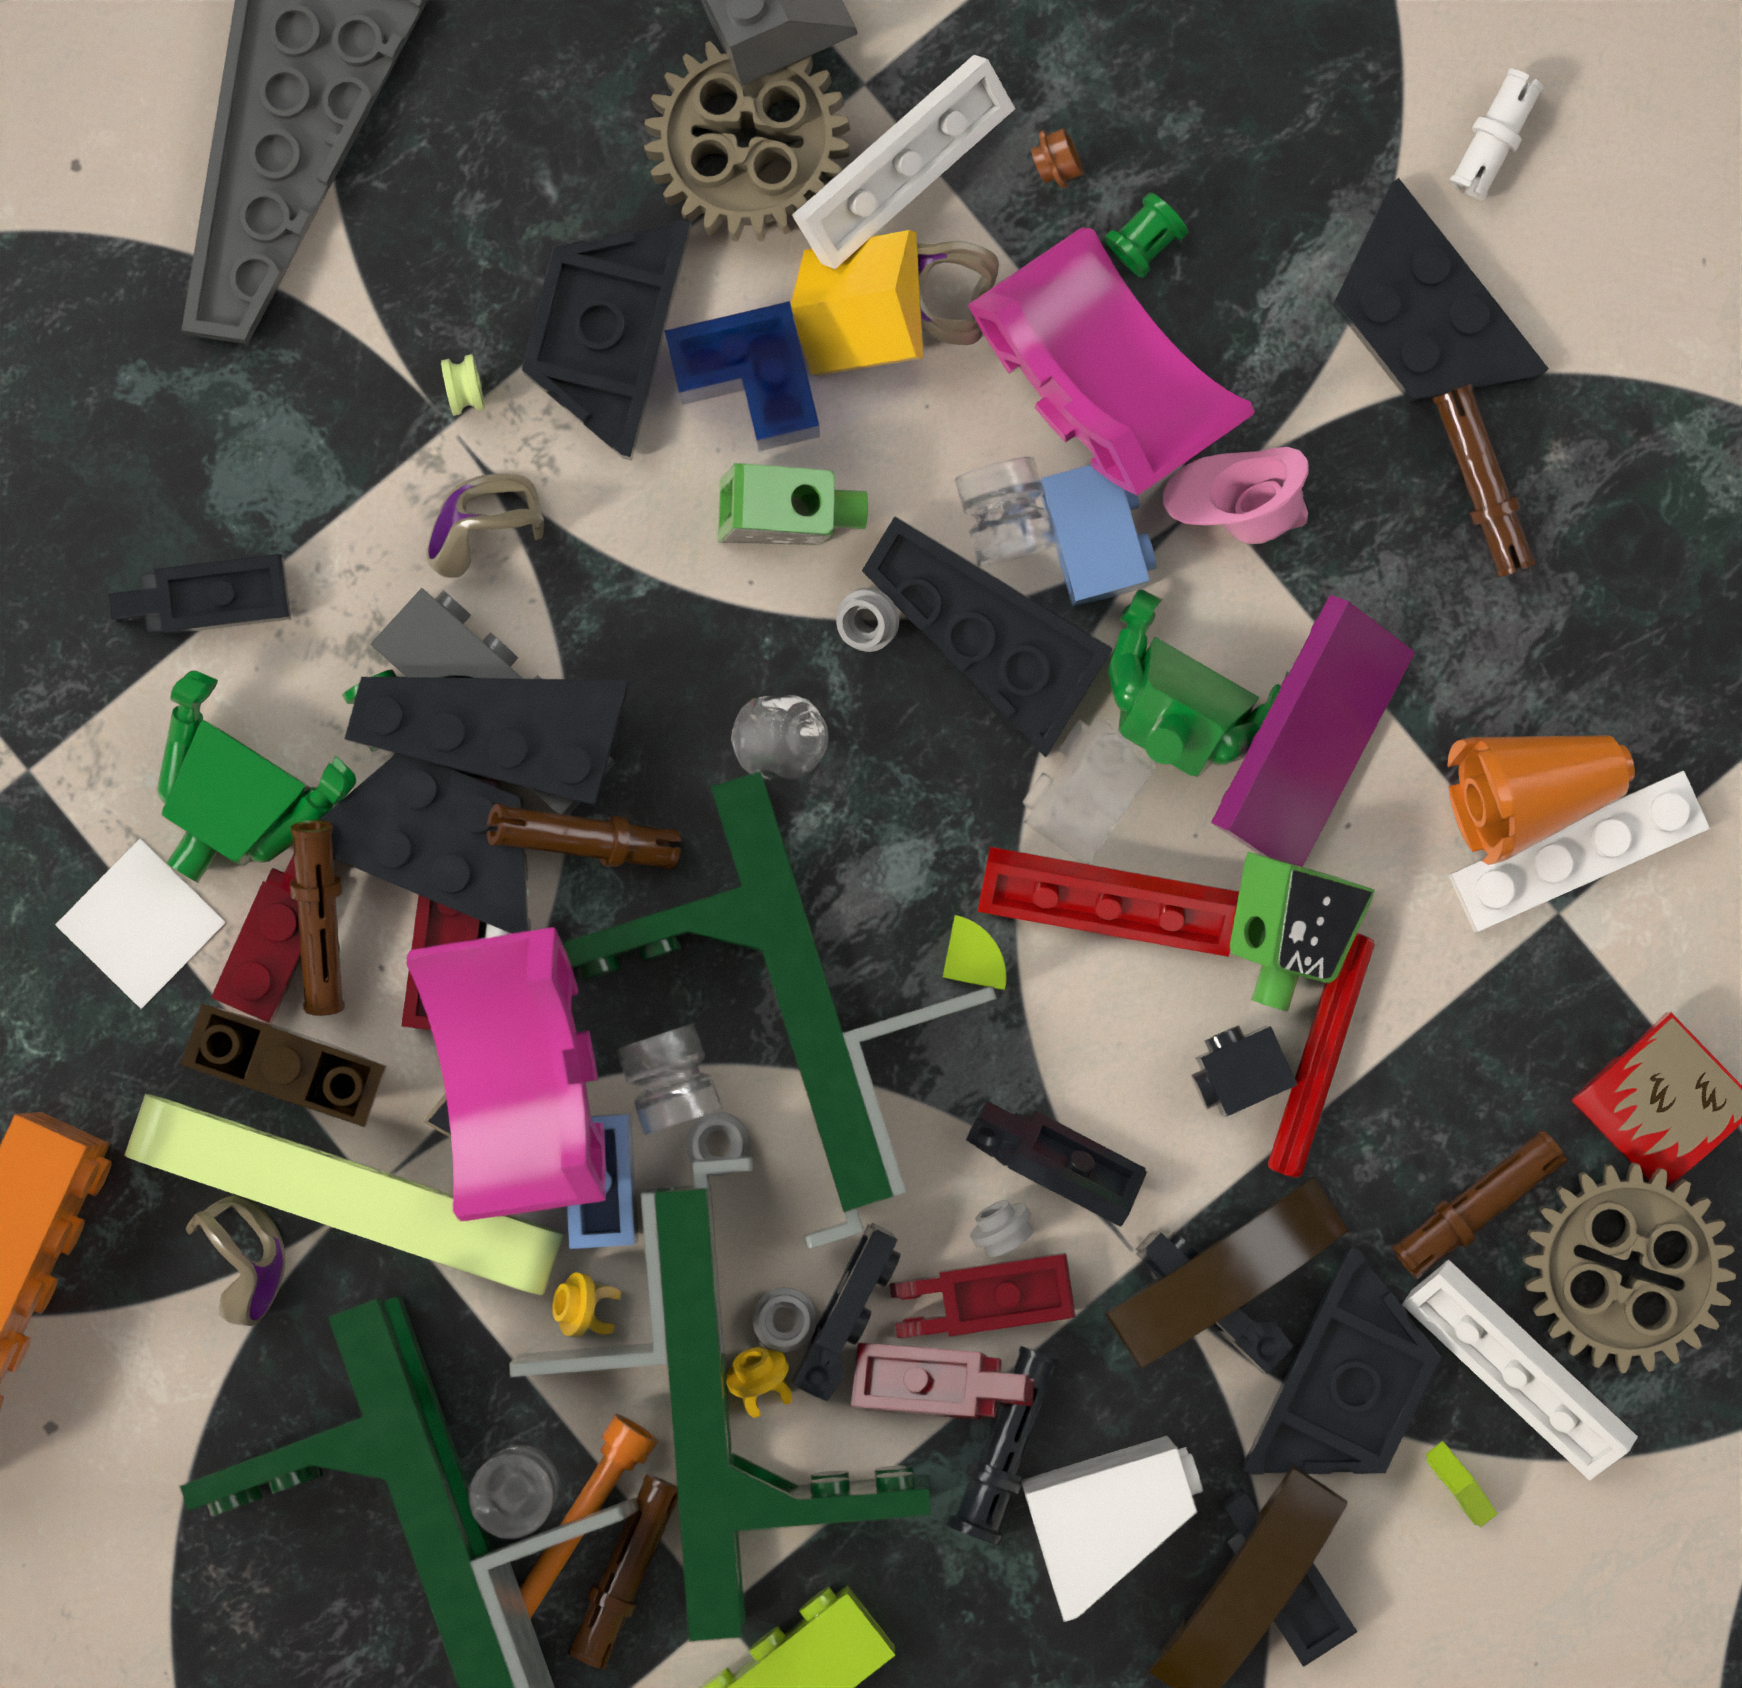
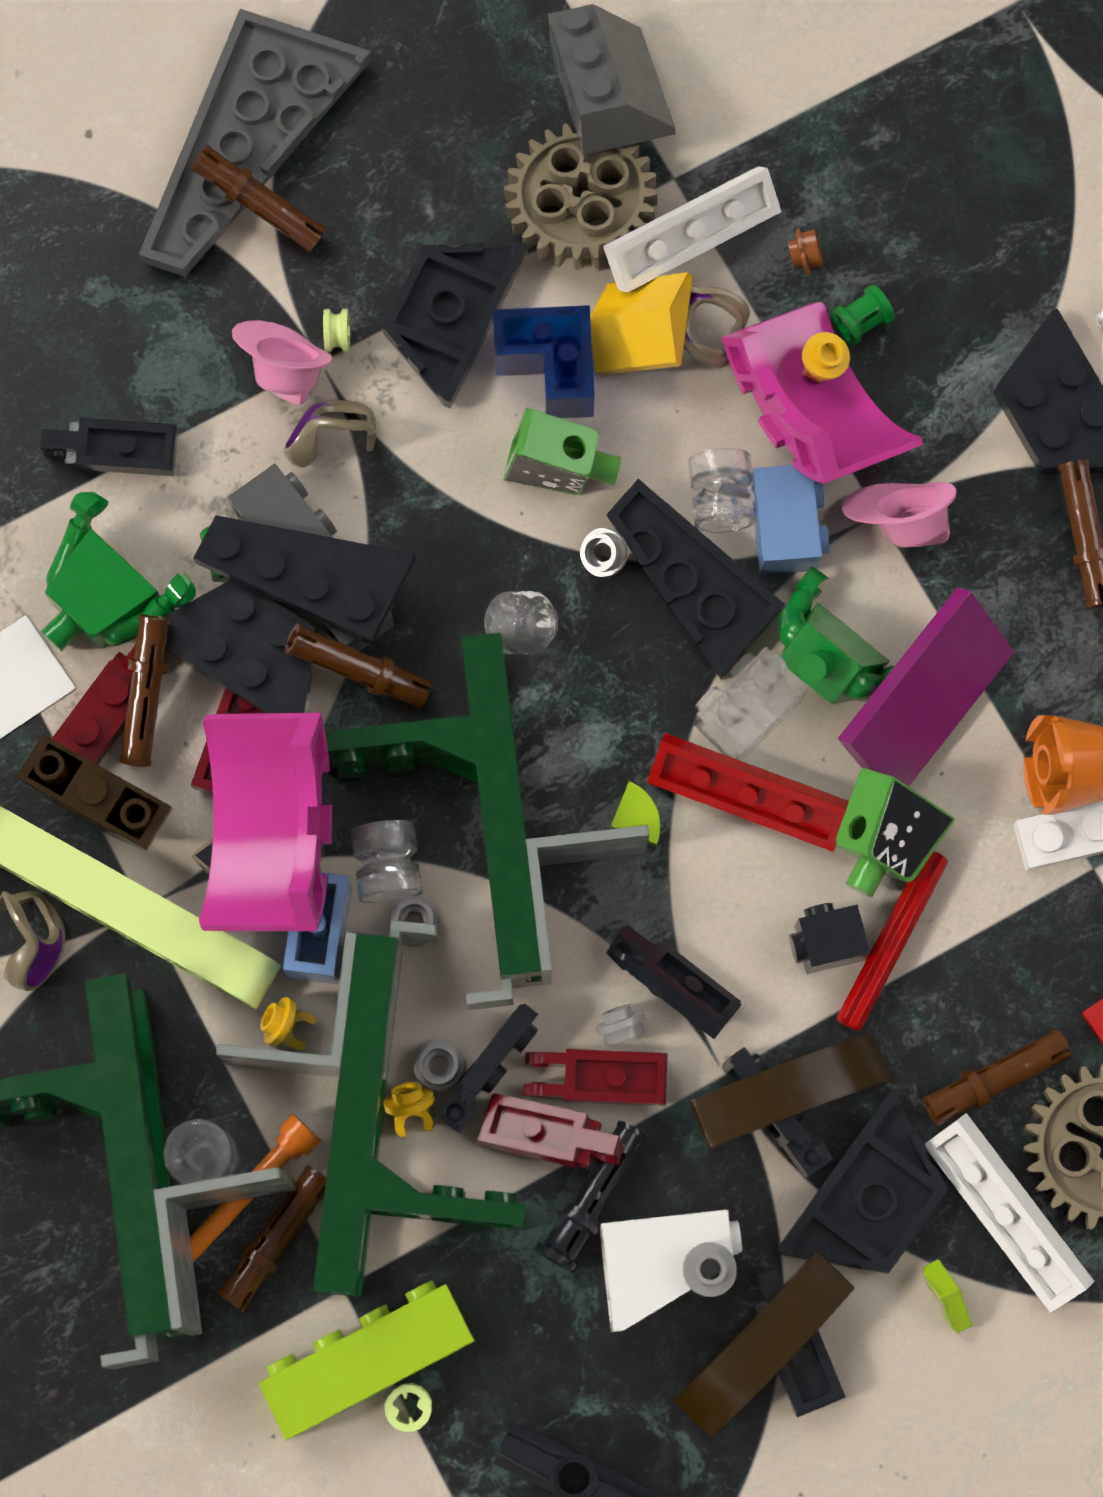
camera: 15 degrees right, 10 degrees down
(315, 222) = (255, 196): none -> reddish brown pin
(400, 434) = (281, 359): none -> bright pink piece
(1108, 307) = (825, 357): none -> yellow plate
(1153, 1513) = (692, 1272): none -> light grey plate

